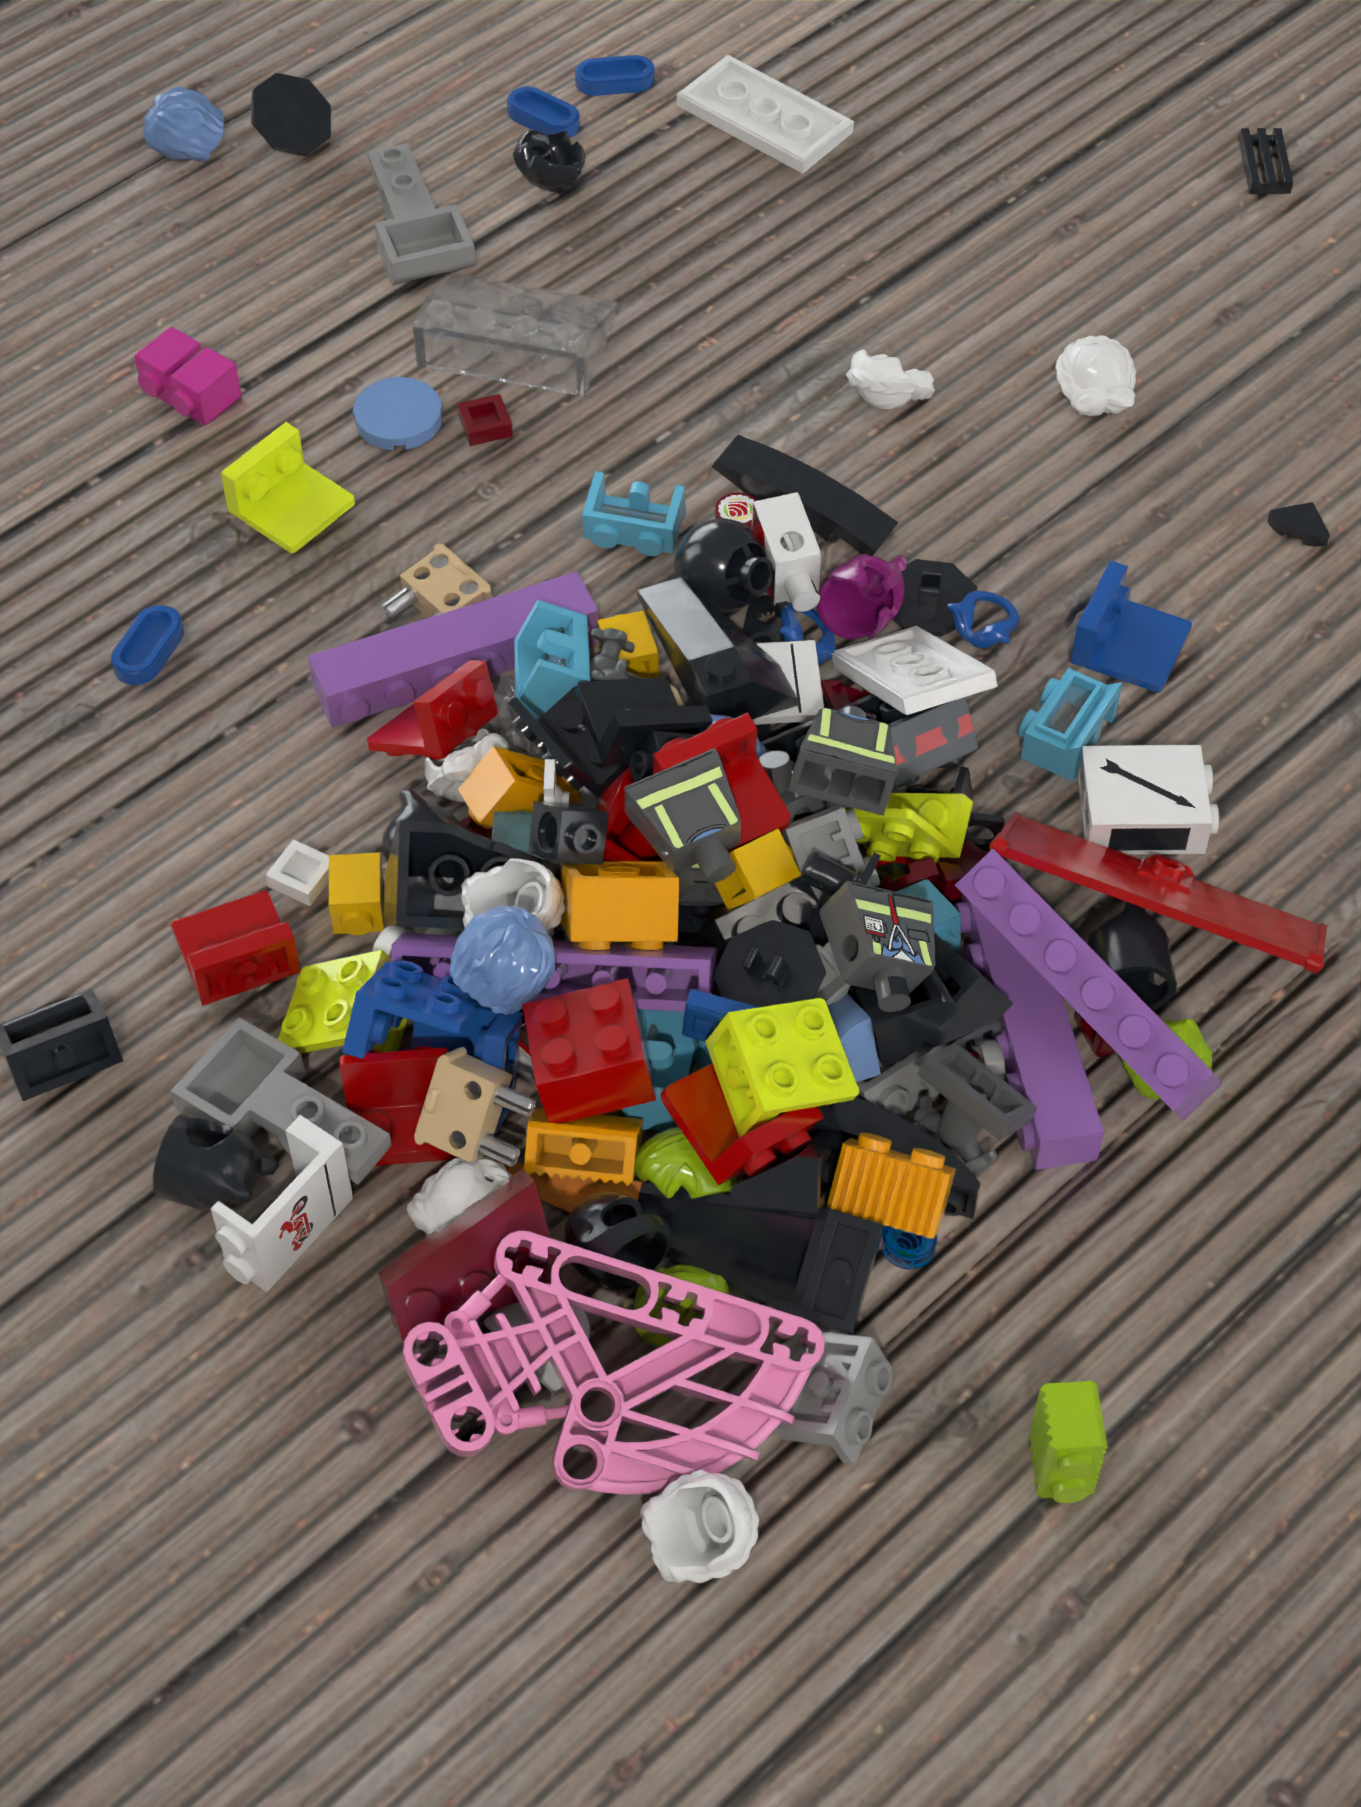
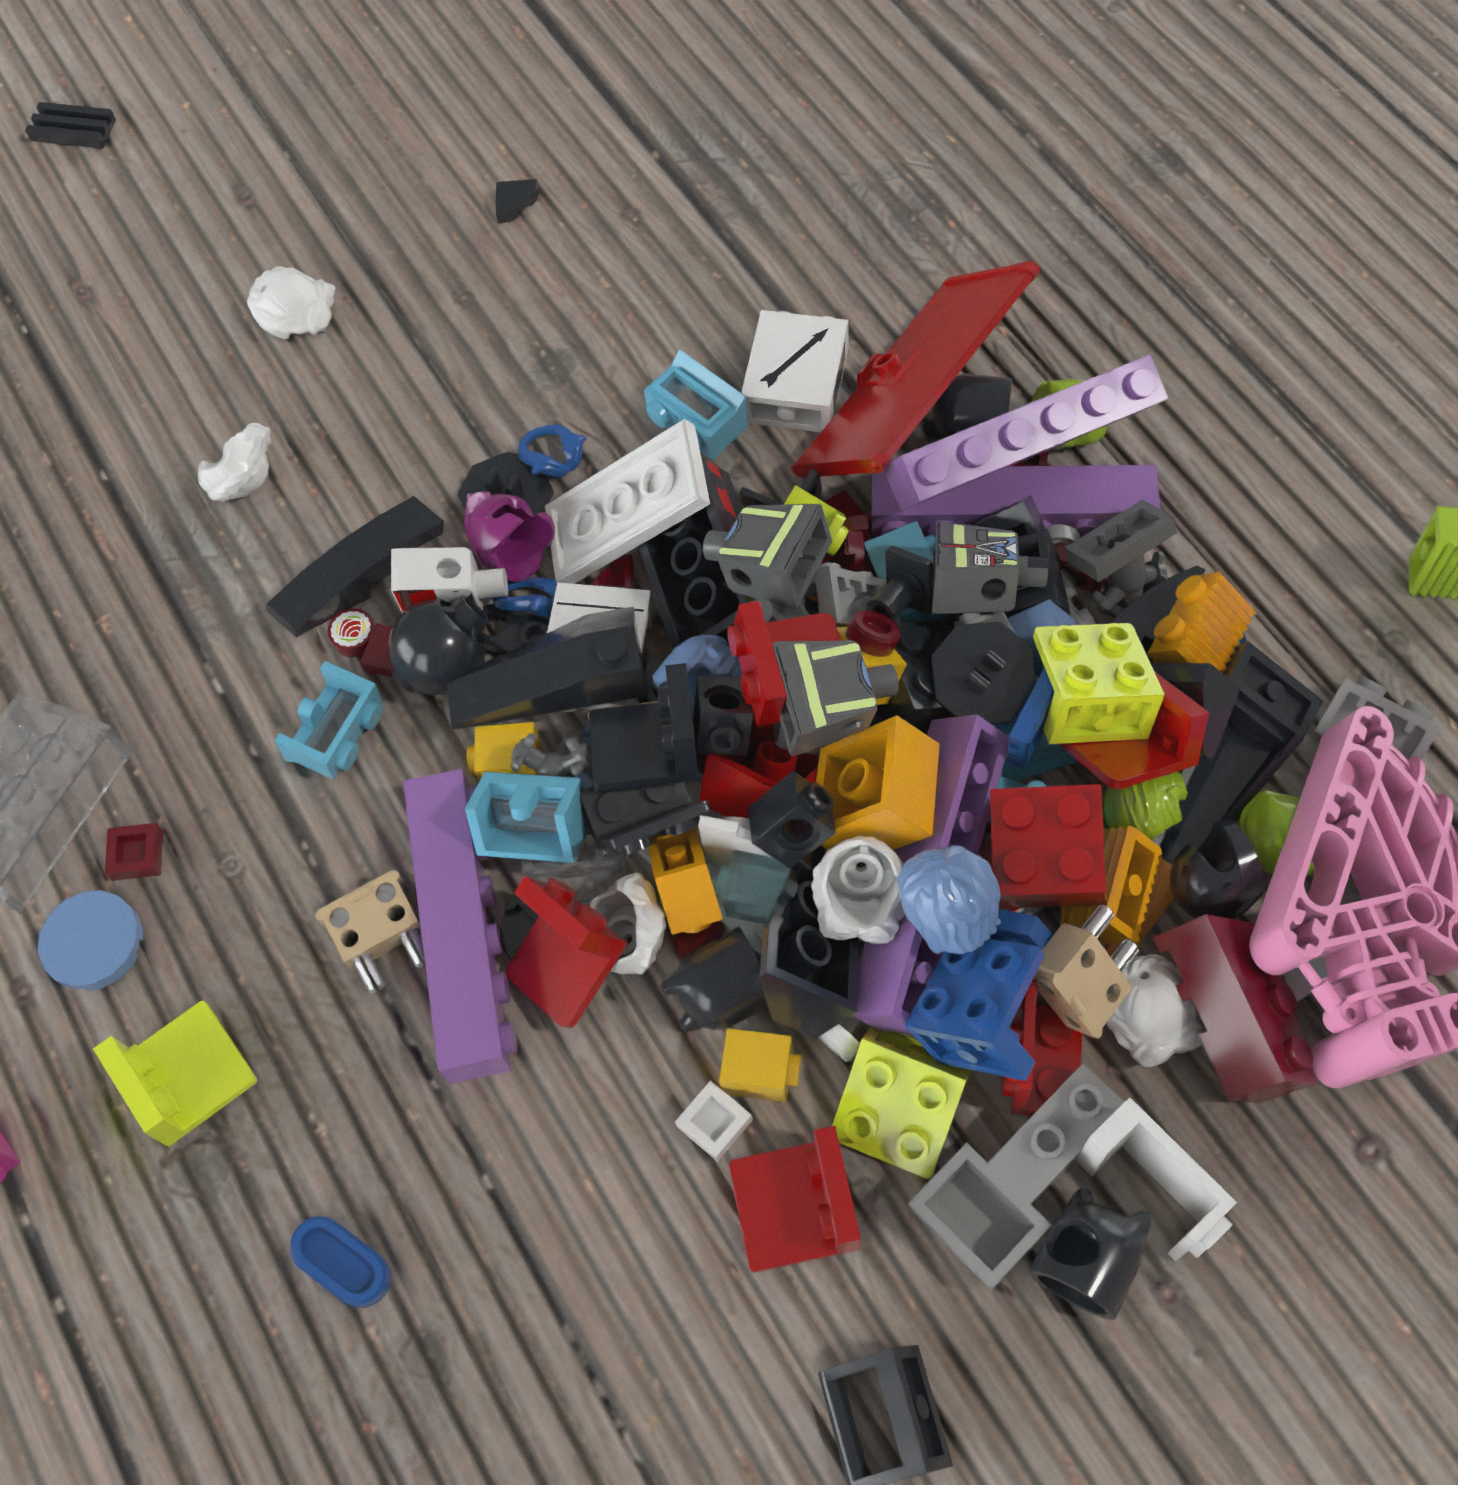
camera: 70 degrees left, 10 degrees up
(779, 860) = (873, 632): none -> dark red tile
(1127, 637) = (607, 345): blue bracket -> none

